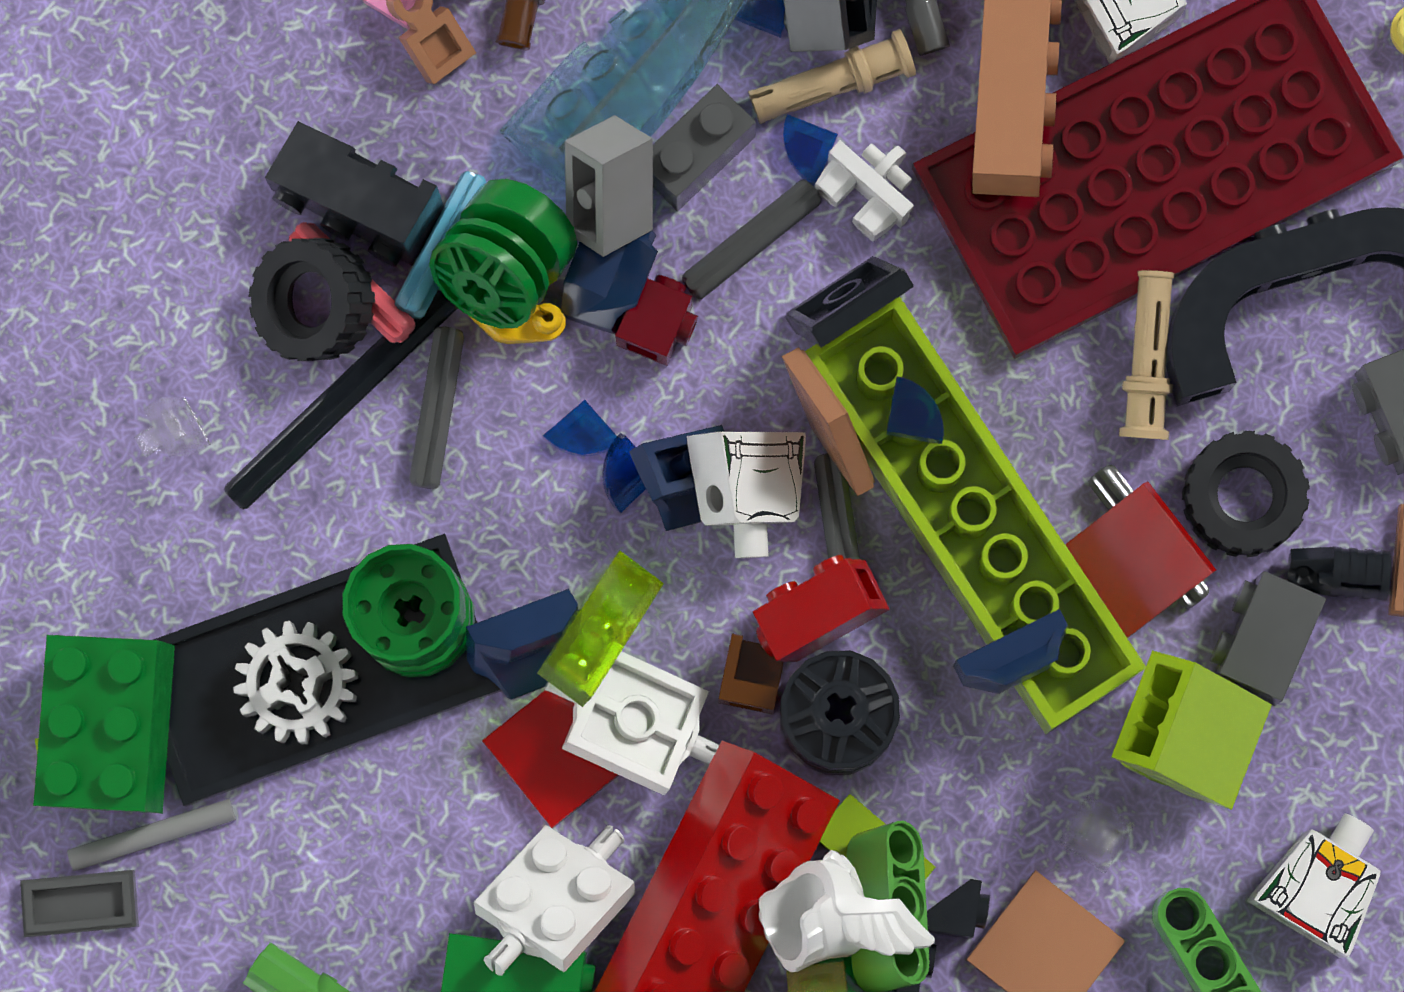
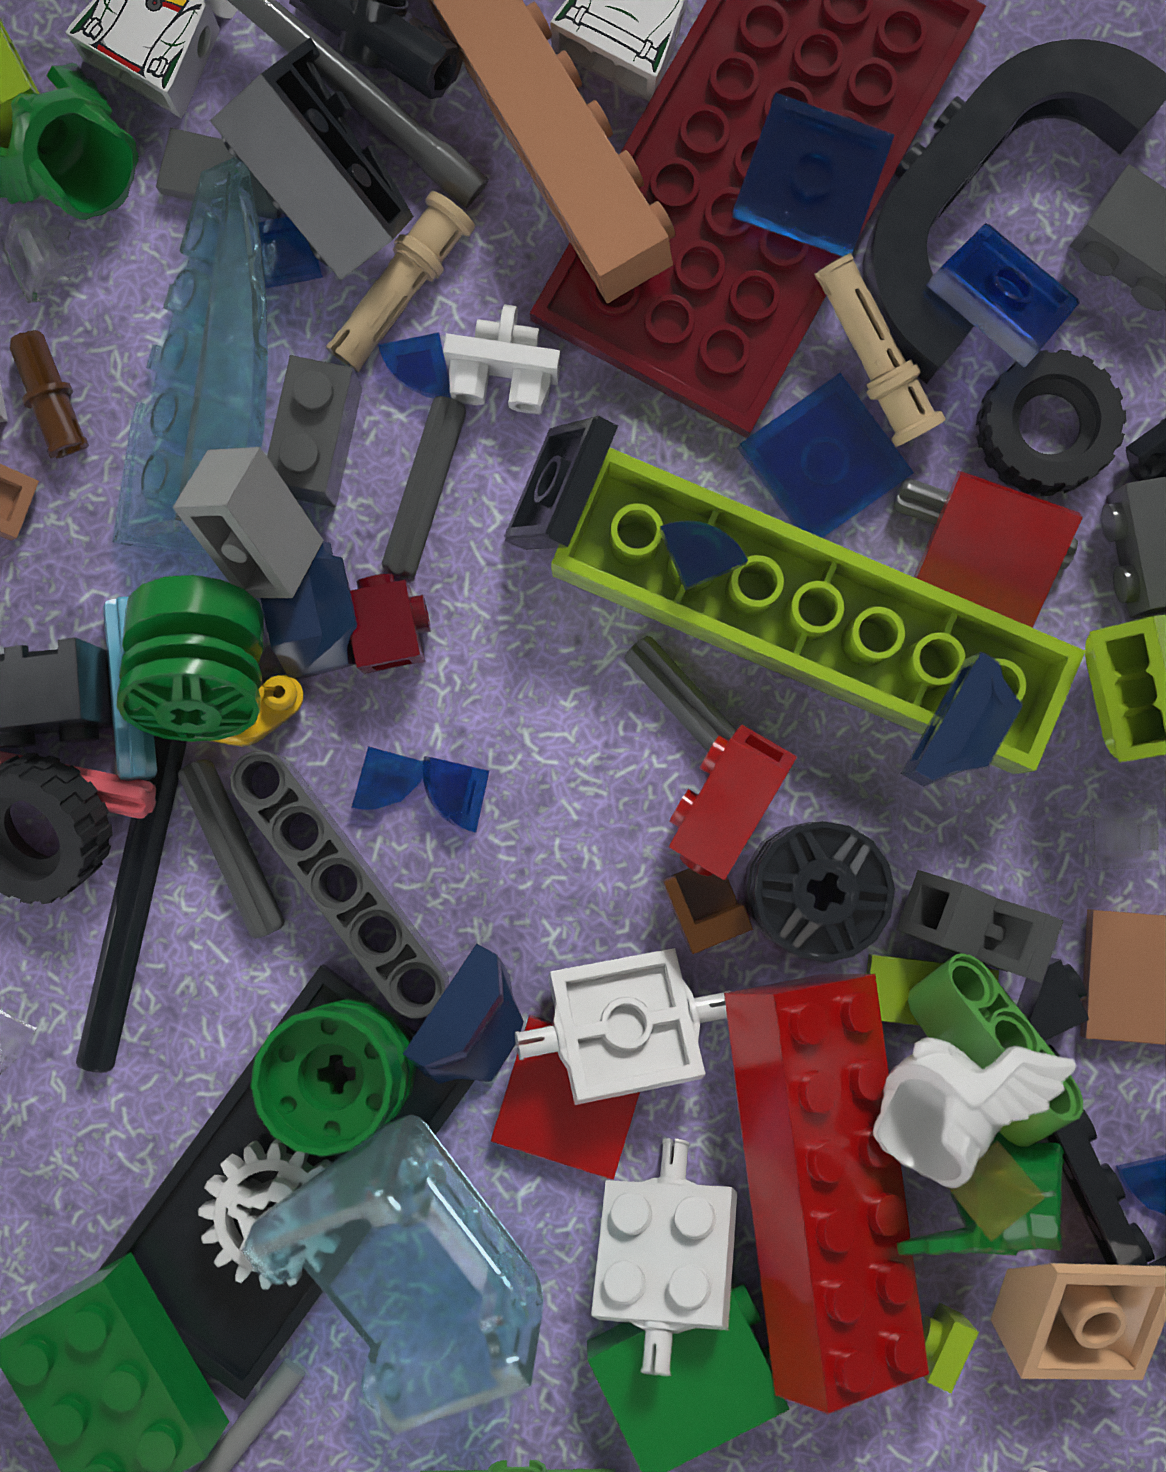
camera: 40 degrees left, 5 degrees up
(367, 784) = (414, 1271): none -> clear light blue windscreen
(492, 457) = (312, 869): none -> dark grey beam
(600, 628) = (534, 966): clear neon green plate -> none
(669, 478) = (513, 755): dark blue slope -> none
(748, 483) = (581, 726): white torso -> none
(829, 421) = (621, 613): nougat tile -> none
(948, 830) = (980, 925): none -> dark grey brick
(1061, 412) = (825, 459): none -> clear blue tile
(1186, 198) = (812, 175): none -> clear blue tile
(1271, 376) = (1004, 294): none -> clear blue tile

